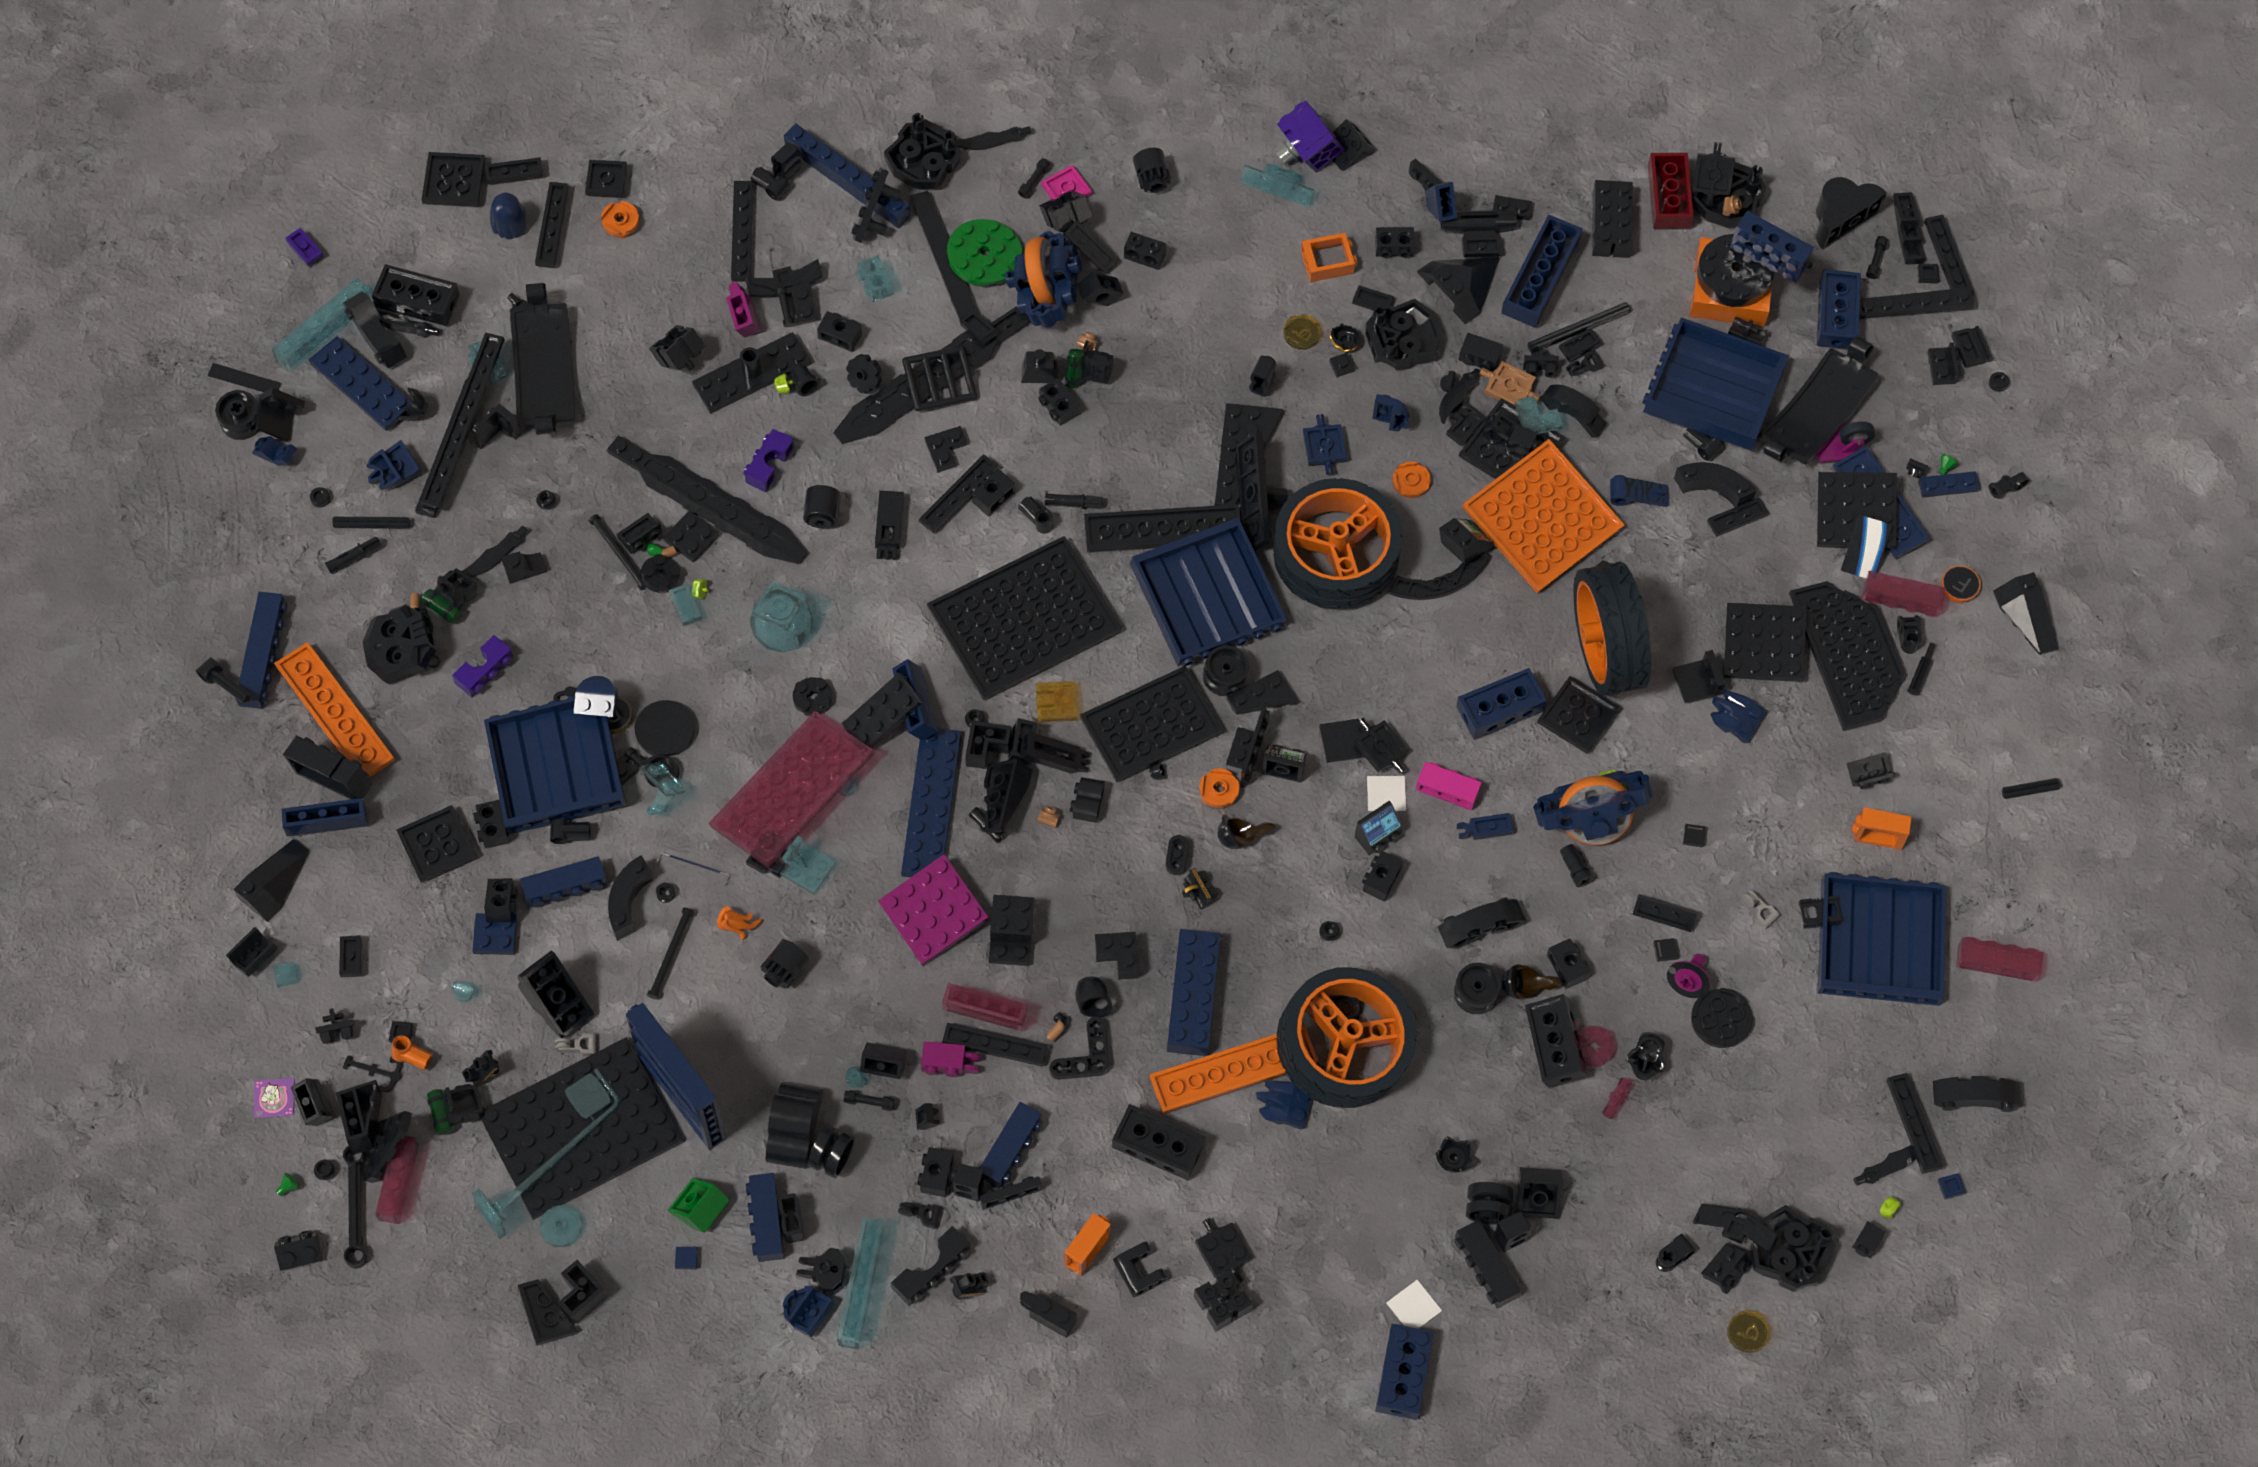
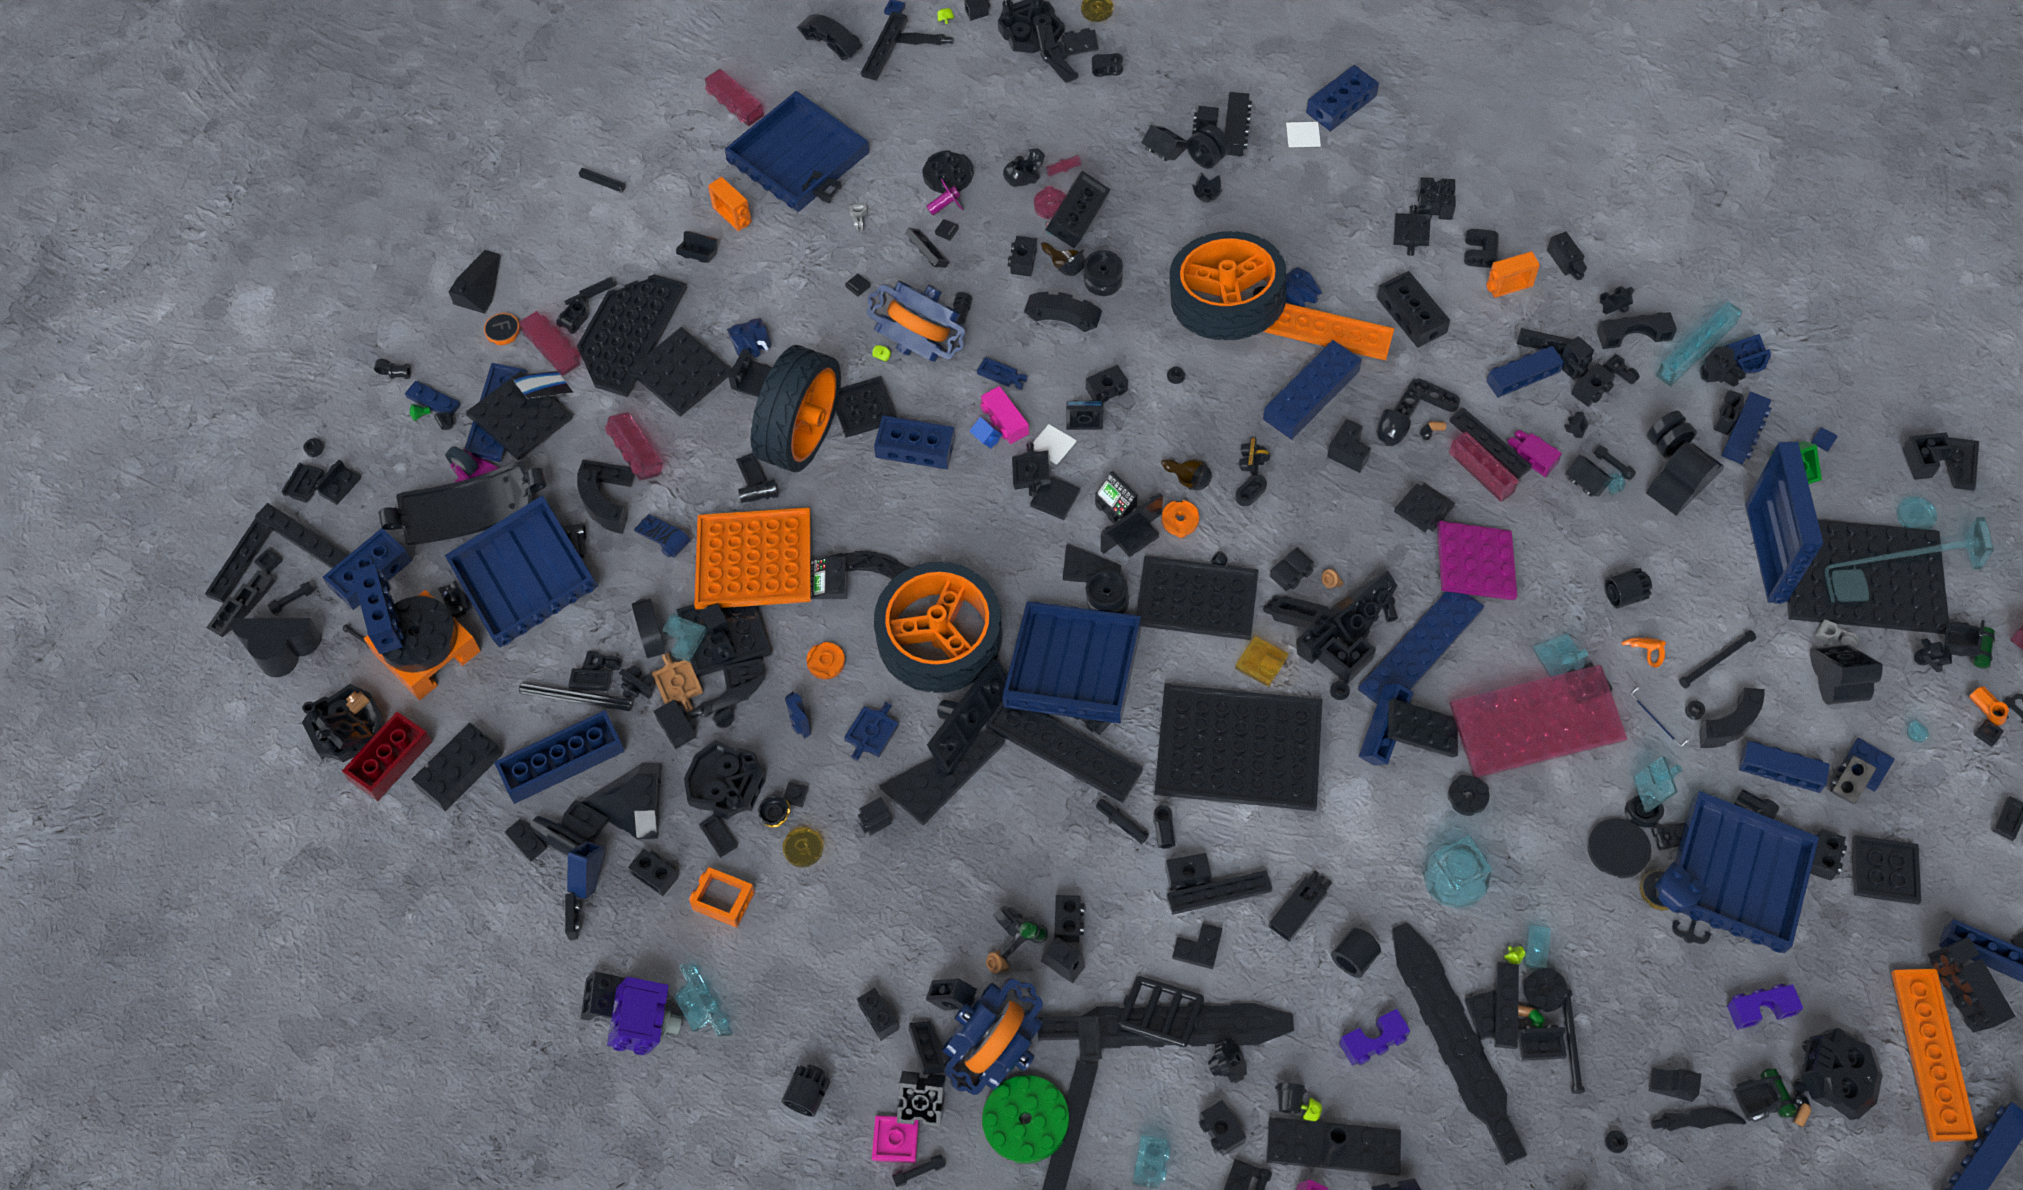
camera: 140 degrees left, 5 degrees down
(683, 539) = (1506, 1005): none -> black plate
(1448, 753) = (985, 432): none -> brick
(1735, 546) = (633, 446): none -> clear pink brick

